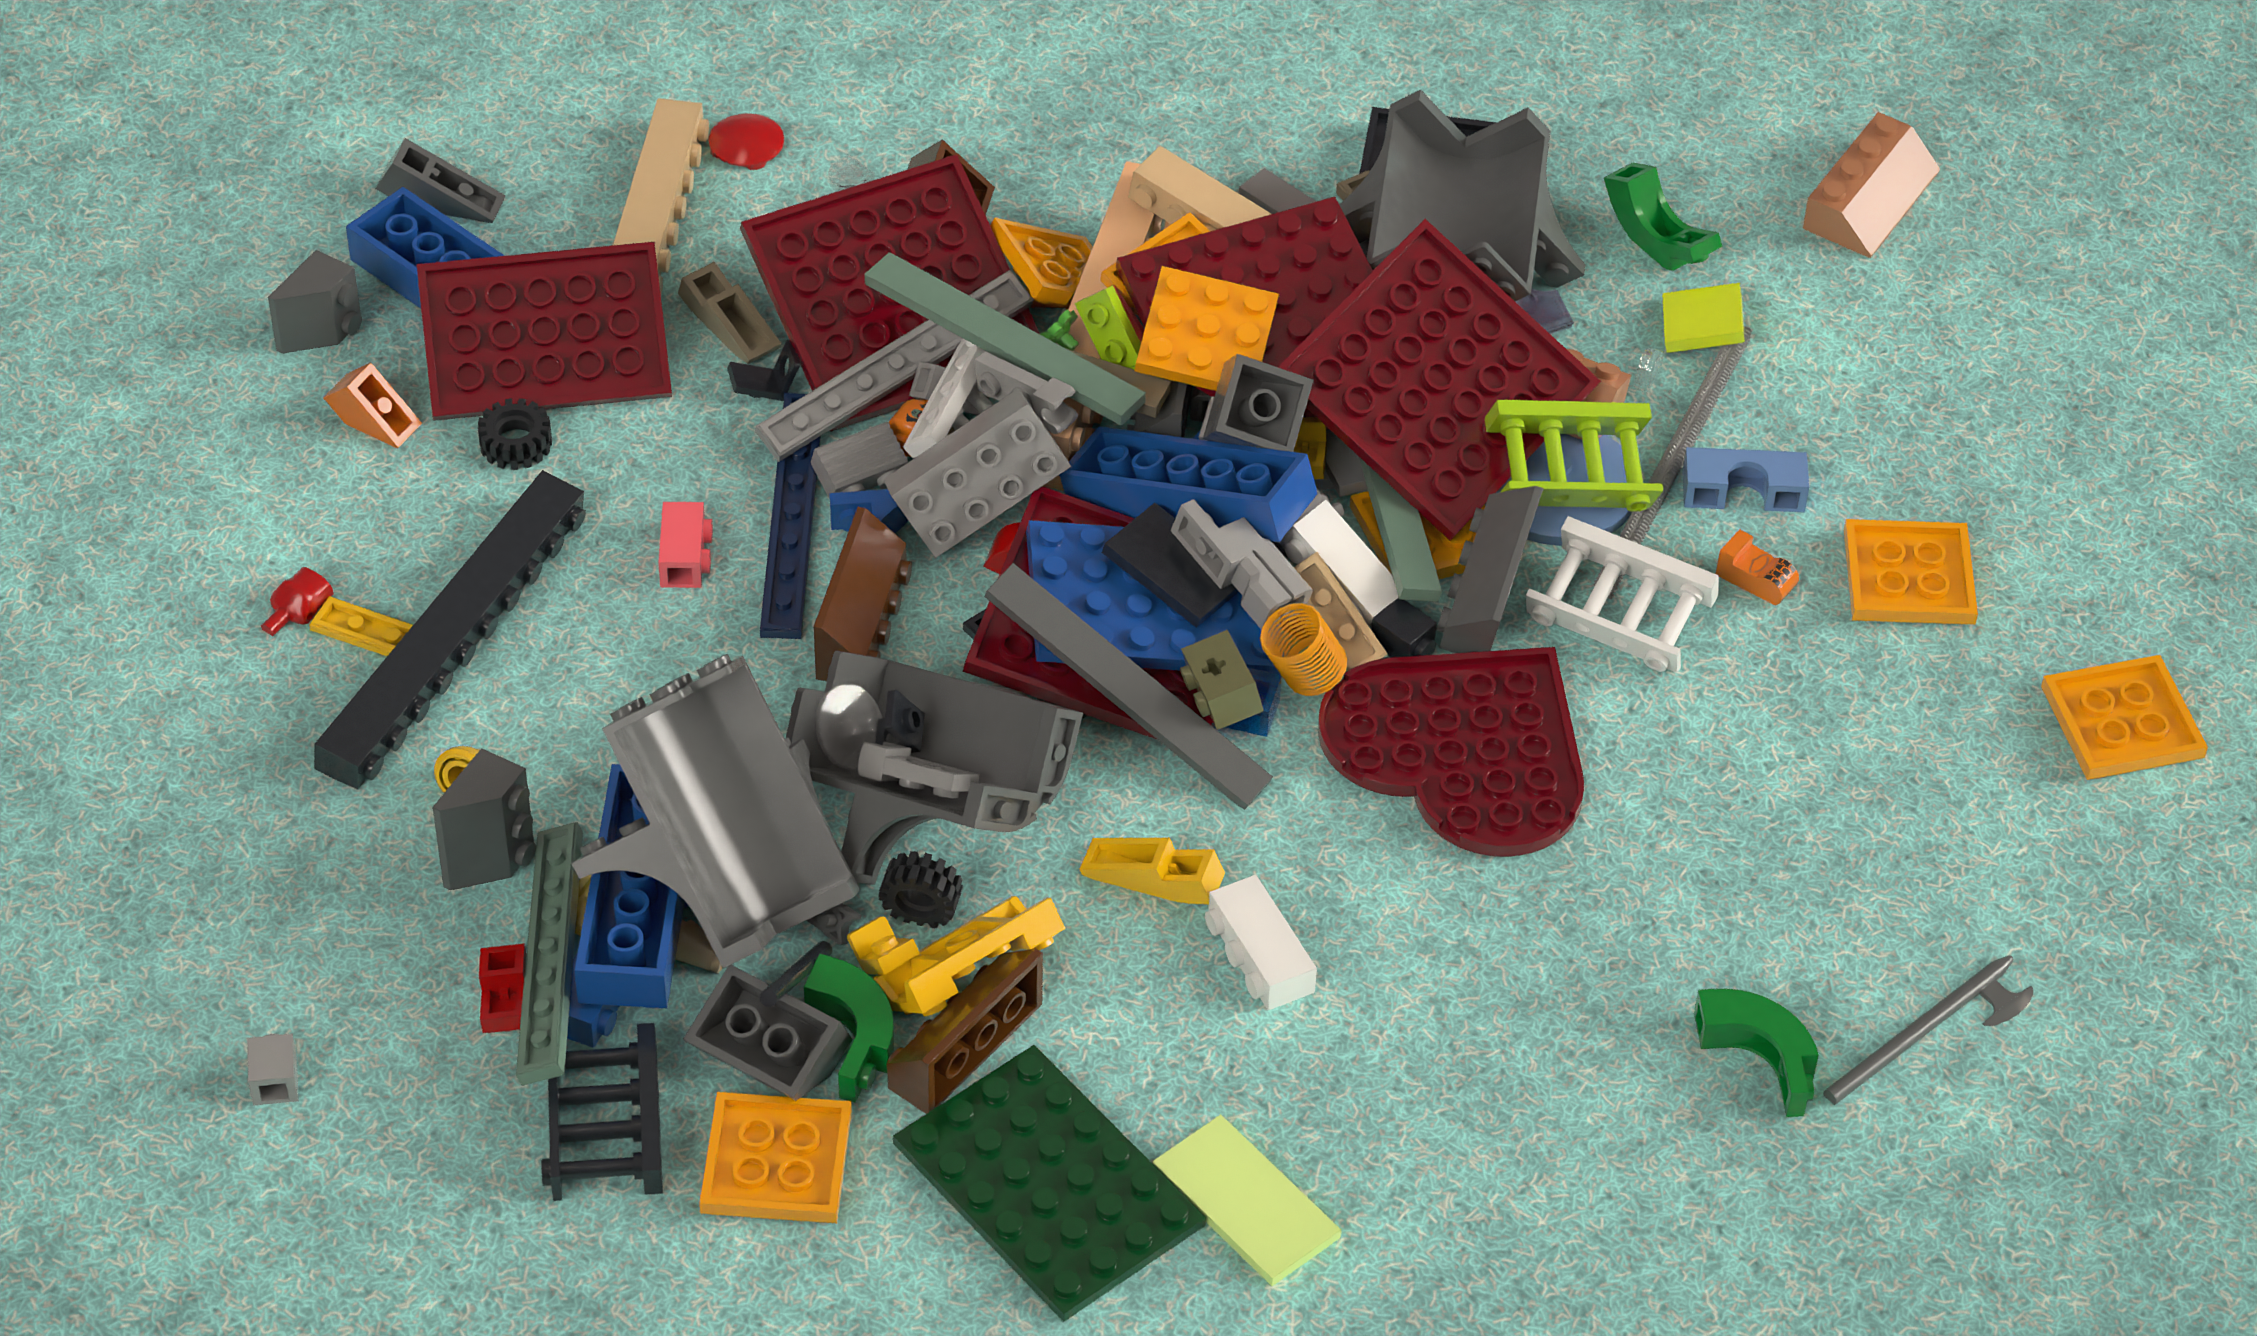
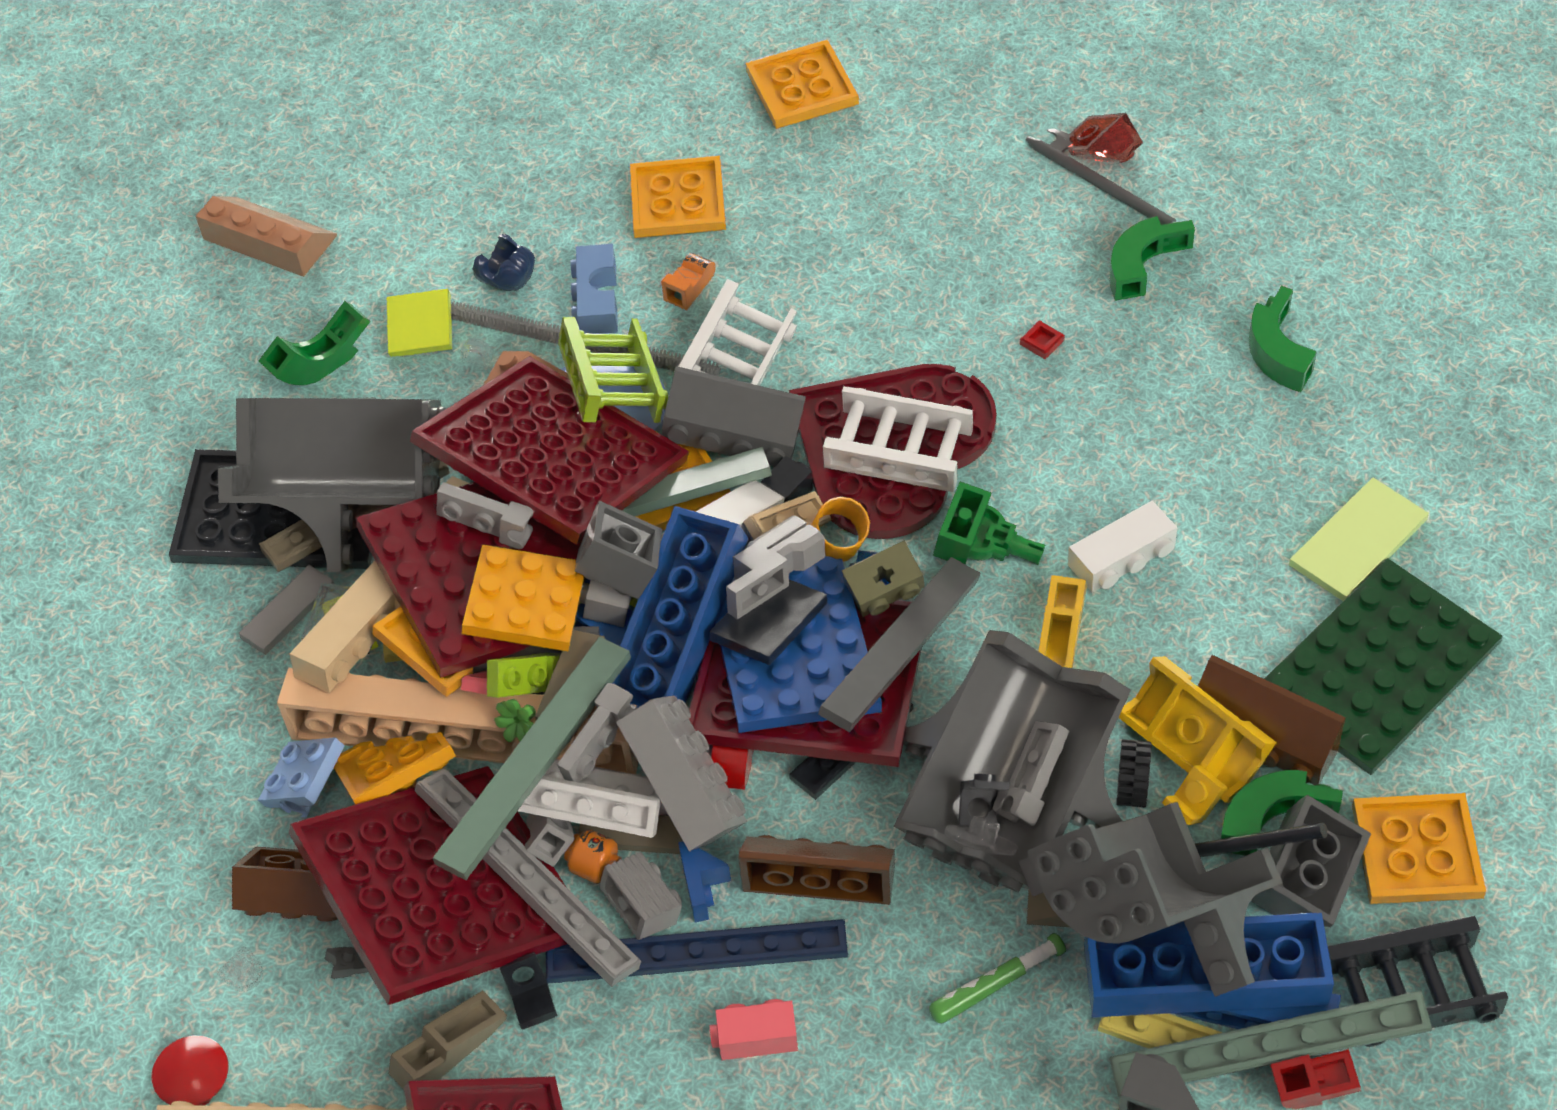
camera: 90 degrees left, 5 degrees up
(1056, 206) = (301, 774): none -> light blue plate
(1303, 799) = (980, 531): none -> green brick
(1316, 299) = (486, 514): none -> light grey plate
(1420, 702) = (894, 464): none -> white fence
(1585, 1154) = (1272, 351): none -> green arch
(1626, 921) = (1042, 339): none -> red tile
(1781, 396) = (507, 267): none -> dark blue hair
(1982, 1029) = (1105, 138): none -> clear red slope

